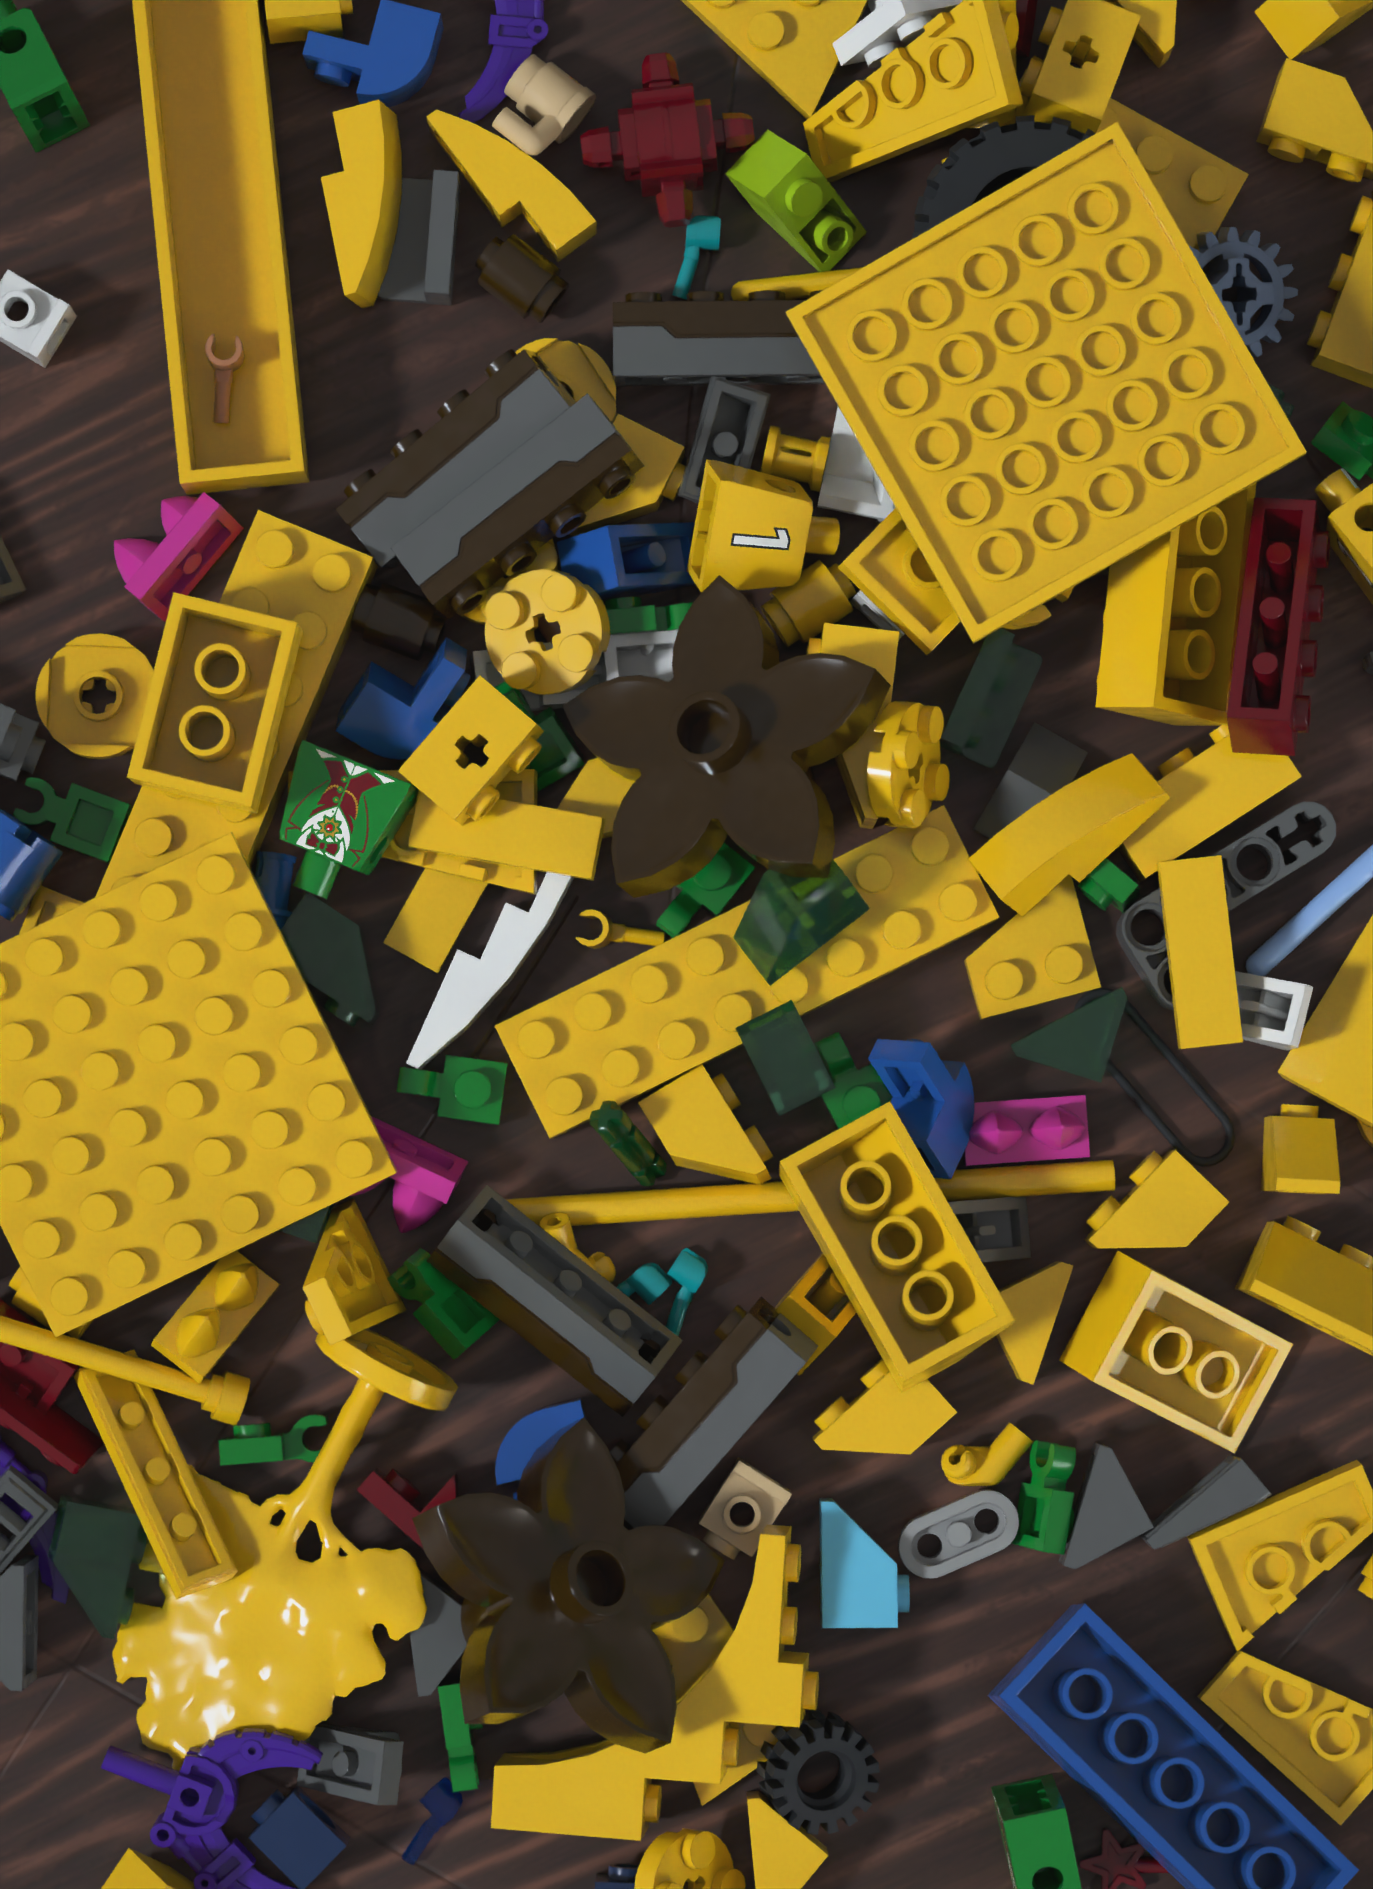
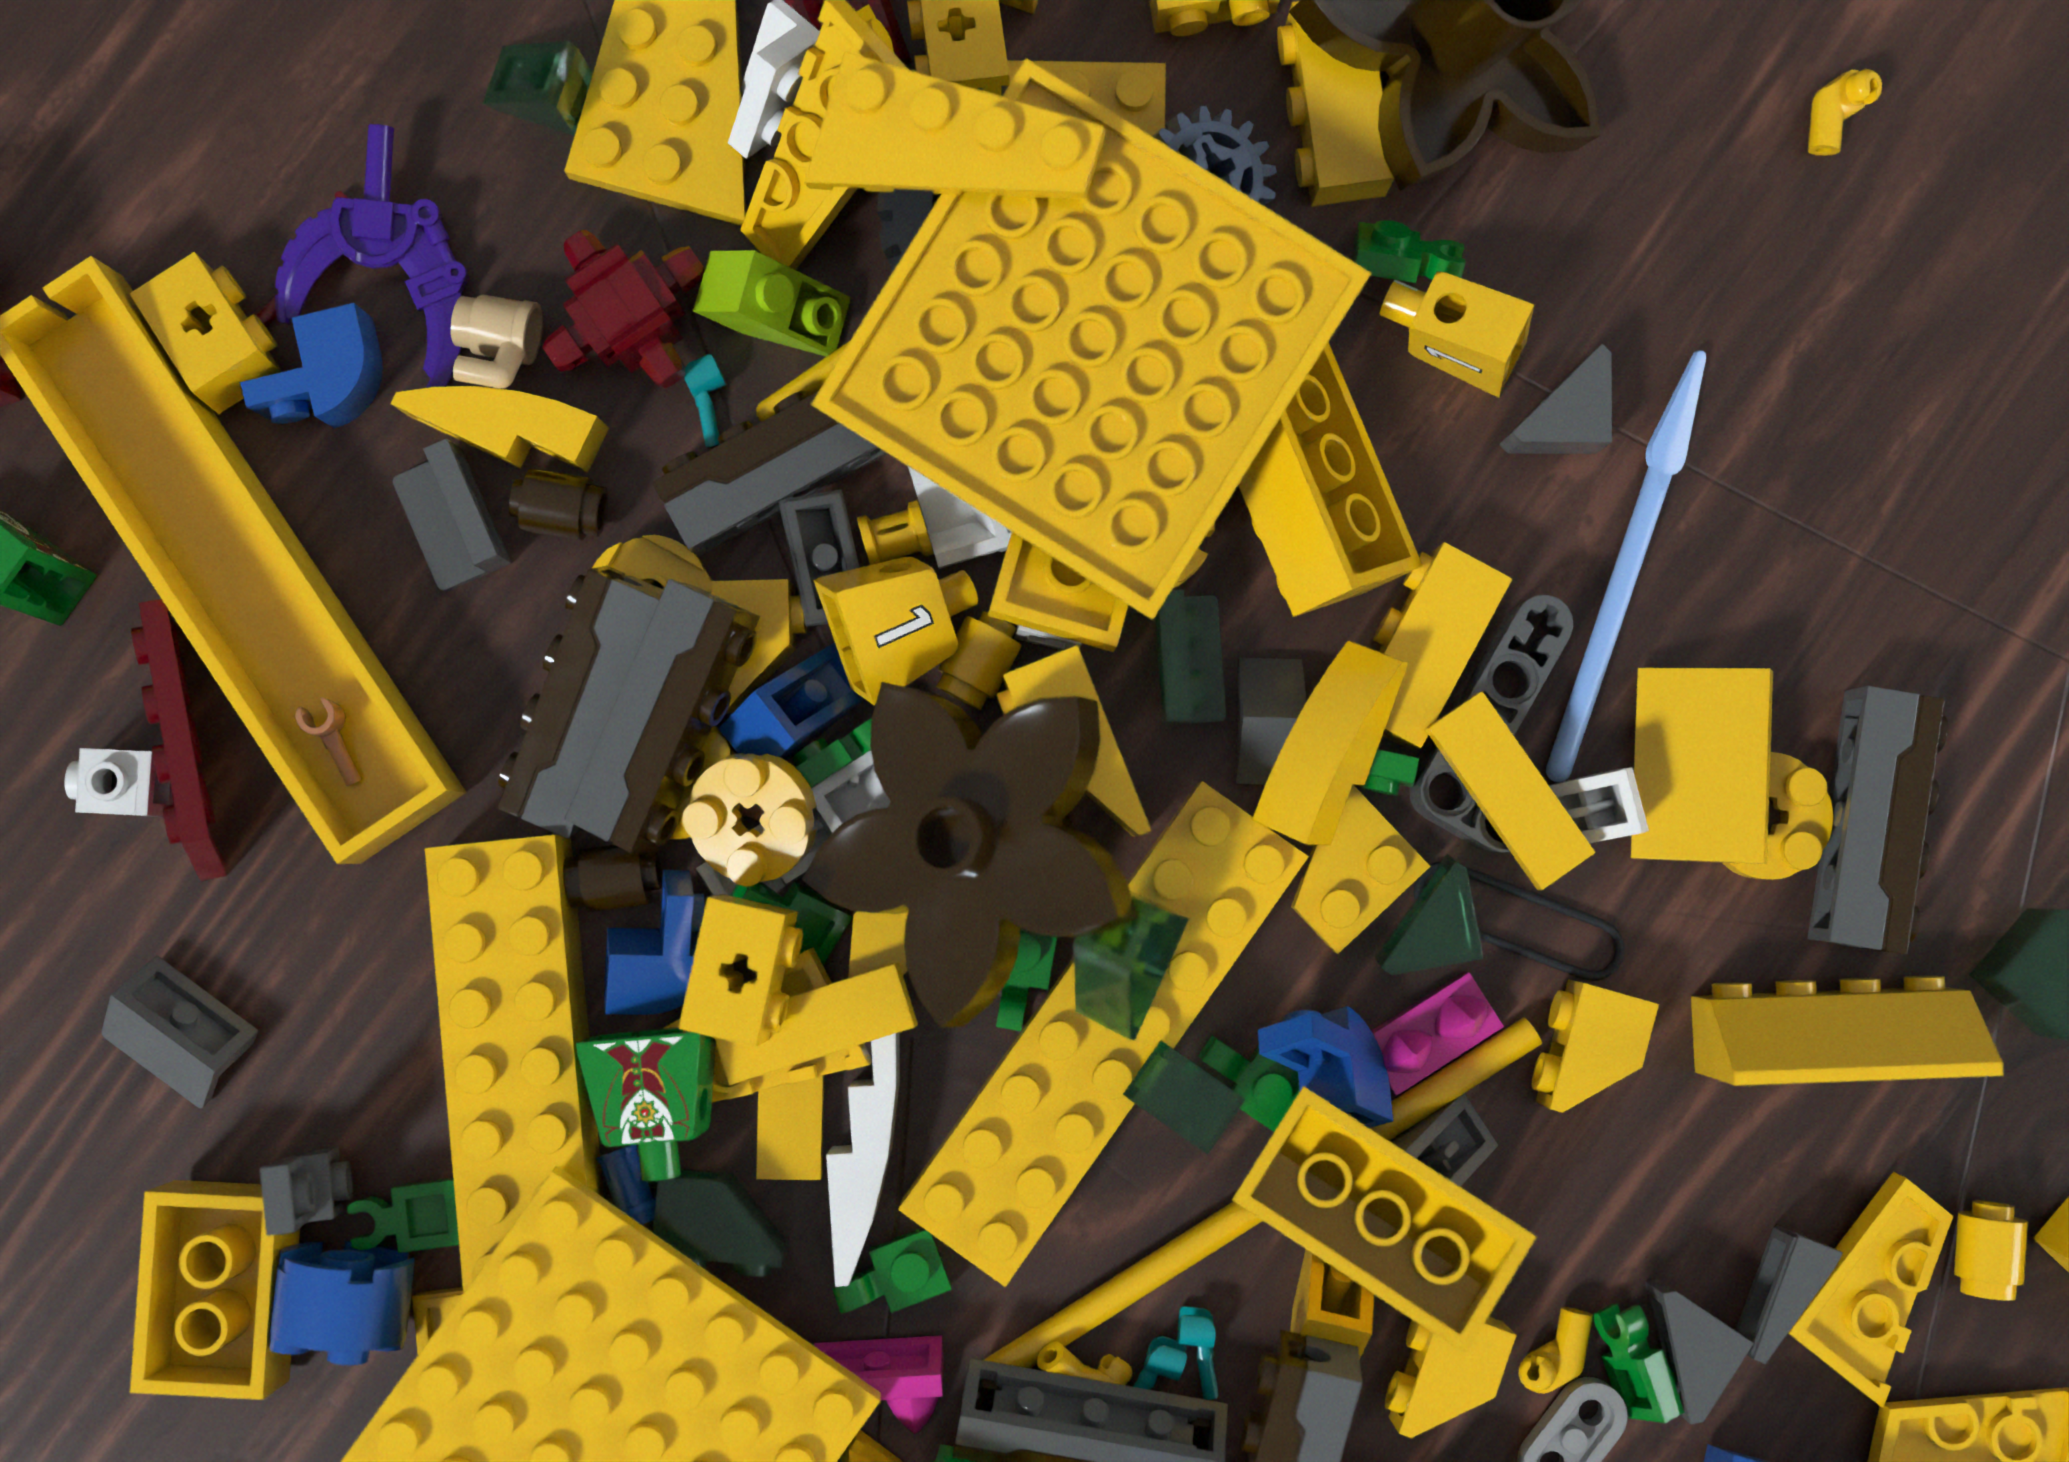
camera: 25 degrees left, 0 degrees up
(75, 671) = (341, 1079): yellow plate -> none
(91, 319) = (178, 756): none -> dark red wing
(195, 539) = (379, 943): dark pink tile -> none
(215, 702) = (471, 1060): yellow brick -> none
(365, 197) = (376, 508): yellow slope -> none
(619, 933) = (966, 1052): yellow hand -> none
(628, 1143) = (1079, 1248): dark green axle -> none
(701, 1131) = (1141, 1197): yellow slope -> none
(908, 769) = (1153, 764): yellow plate -> none
(1001, 141) = (926, 133): none -> yellow wing
(1034, 1305) = (1529, 1196): yellow slope -> none
(1175, 1352) = (1676, 1165): yellow slope -> none
(1274, 627) = (1417, 457): dark red brick -> none
(1300, 1152) = (1698, 925): yellow slope -> none

